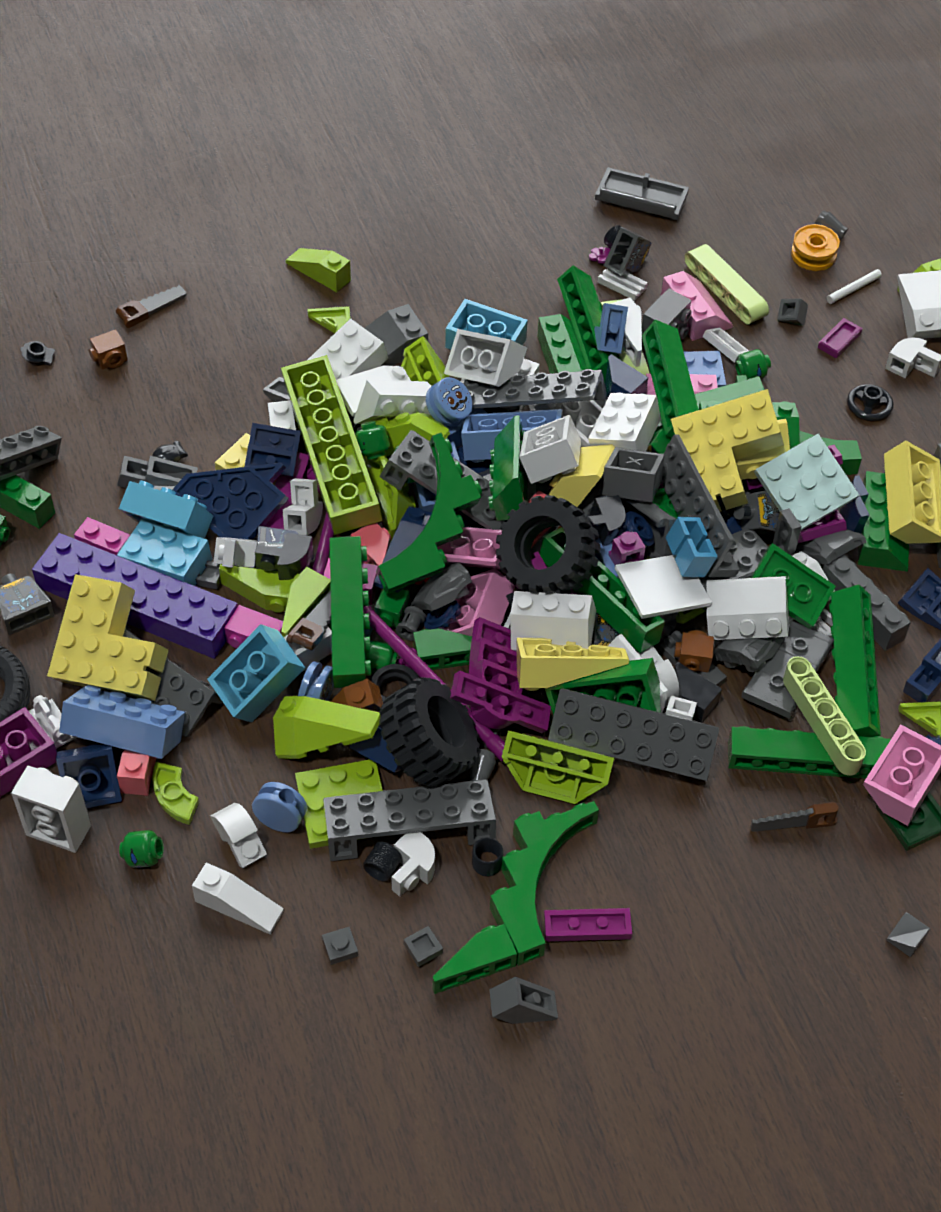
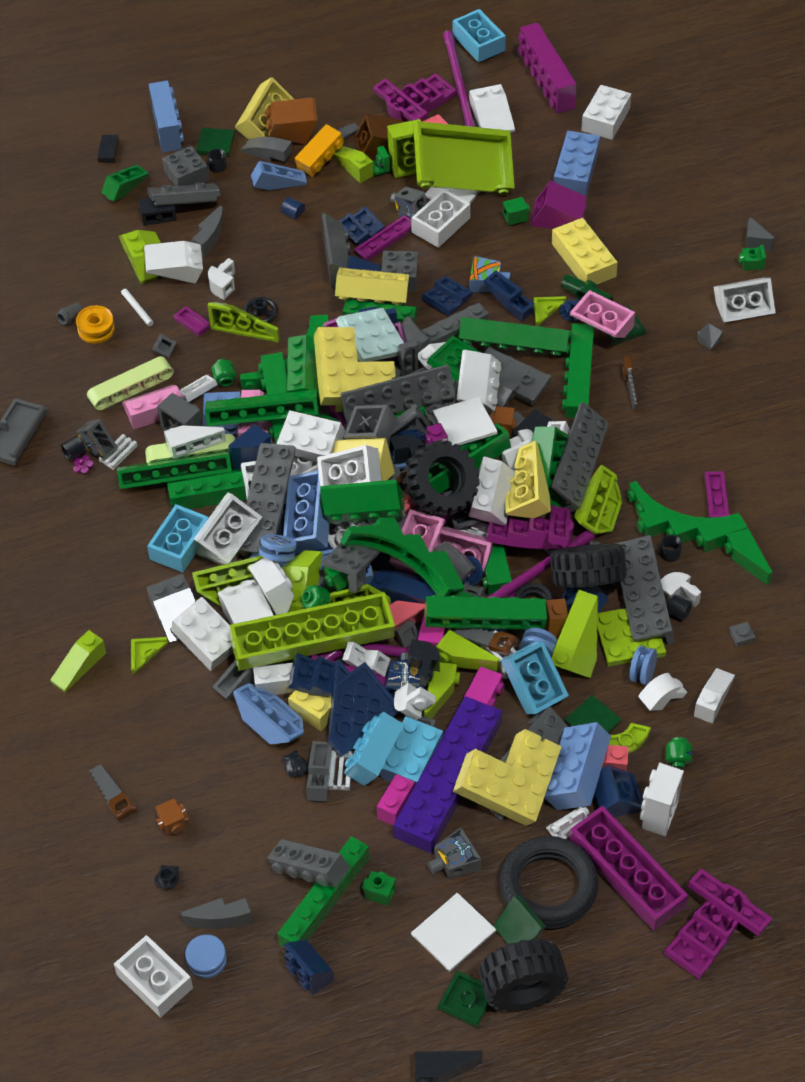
camera: 85 degrees left, 0 degrees up
(206, 755) = (591, 712): none -> dark green tile
(229, 420) = (268, 714): none -> medium blue wedge
(423, 946) = (740, 585): dark grey plate -> none
(522, 1002) = (777, 532): dark grey slope -> none
(612, 327) = (203, 446): medium blue slope -> none
(689, 543) = (448, 400): dark azure piece -> none
(825, 727) = (561, 352): yellowish green beam -> none
(844, 371) = (236, 321): none -> lime wedge

